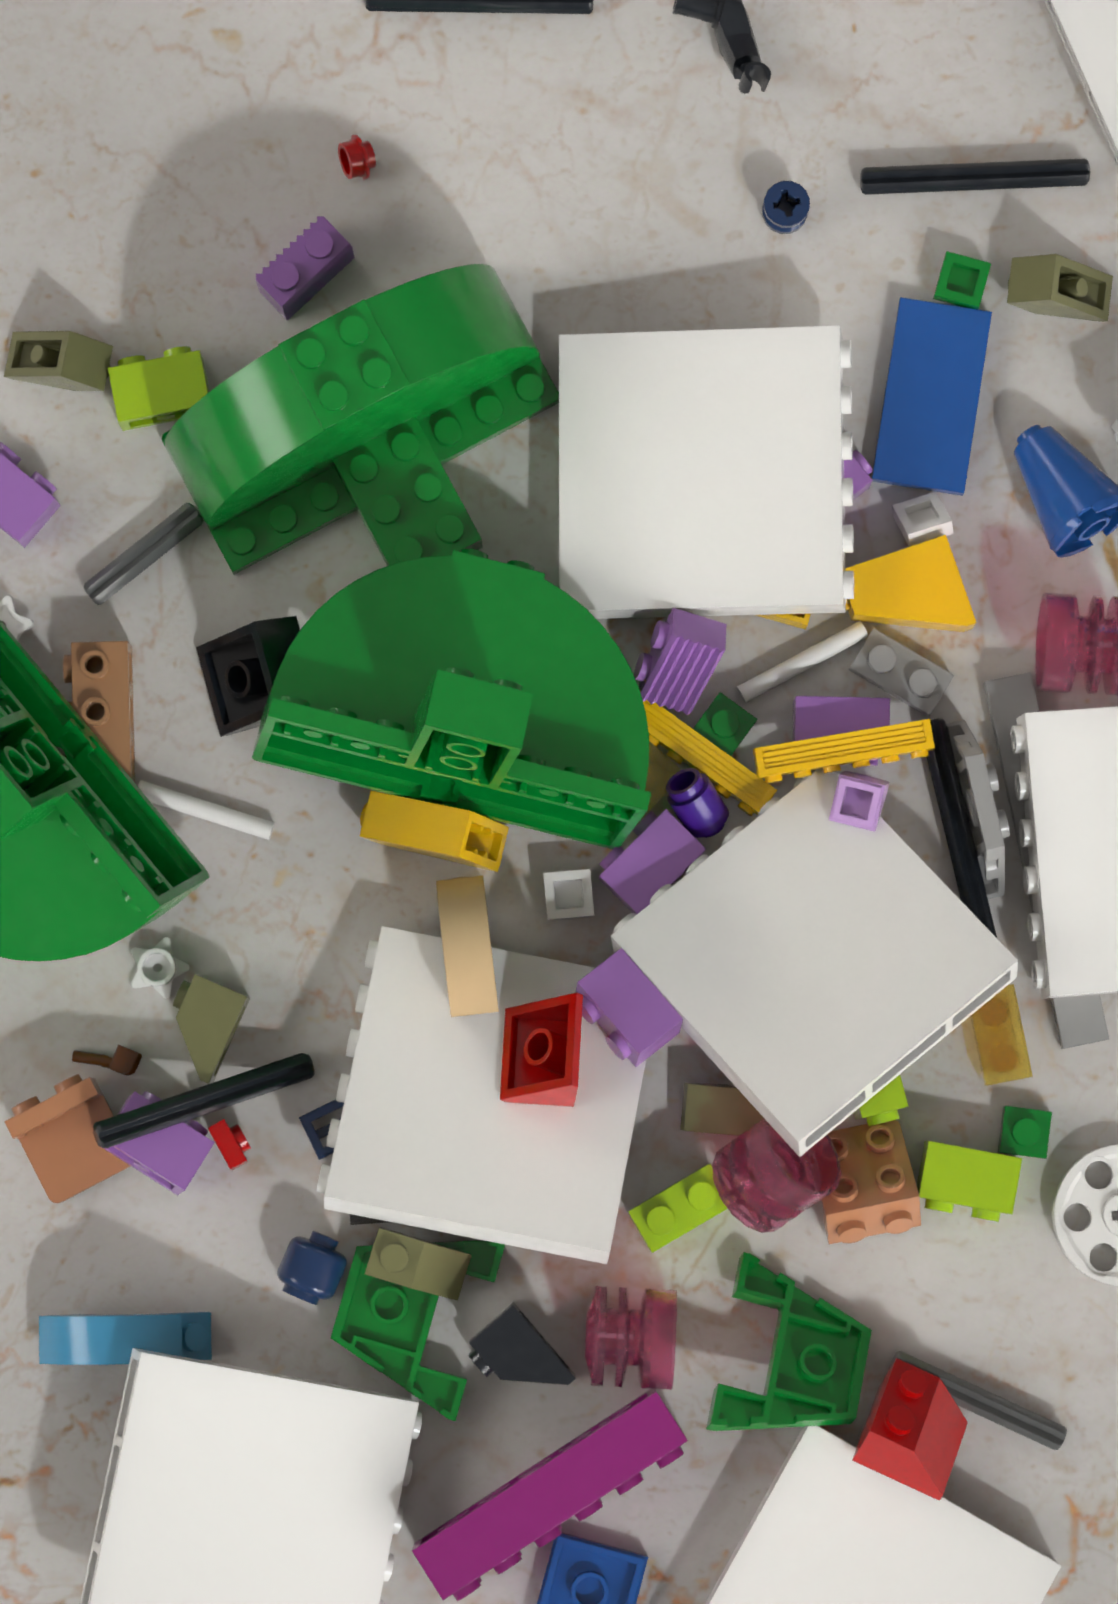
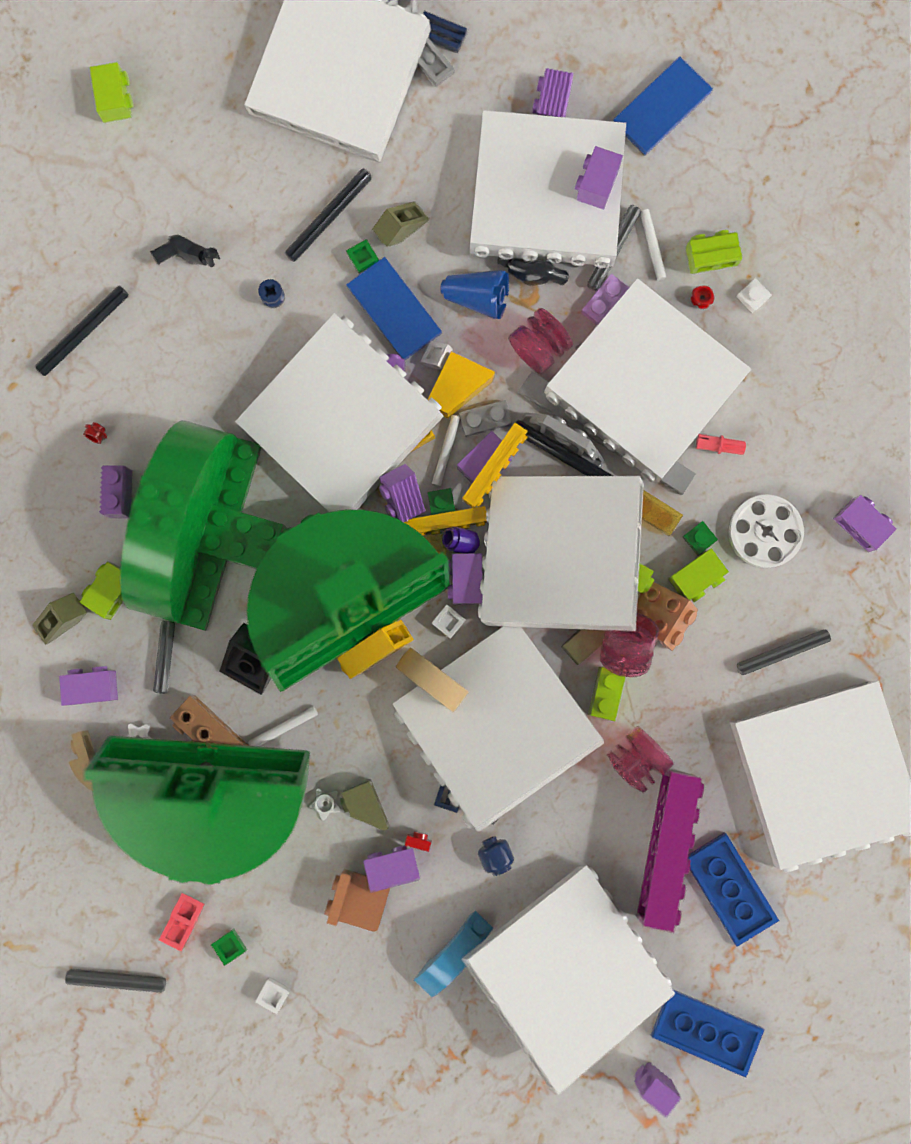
camera: 40 degrees left, 0 degrees up
(123, 1061) = (348, 851): reddish brown hand -> none
(203, 1100) = (392, 837): black axle -> none
(391, 1325) = (539, 838): green wing -> none
(417, 1264) = (533, 815): olive slope -> none
(517, 1351) = (604, 809): black slope -> none
(542, 1051) = (500, 689): red slope -> none
(628, 1008) = (514, 641): medium lavender brick -> none
(812, 1364) = (713, 701): green wing -> none
(858, 800) = (519, 478): lavender slope -> none
(912, 1430) = (774, 688): red slope -> none

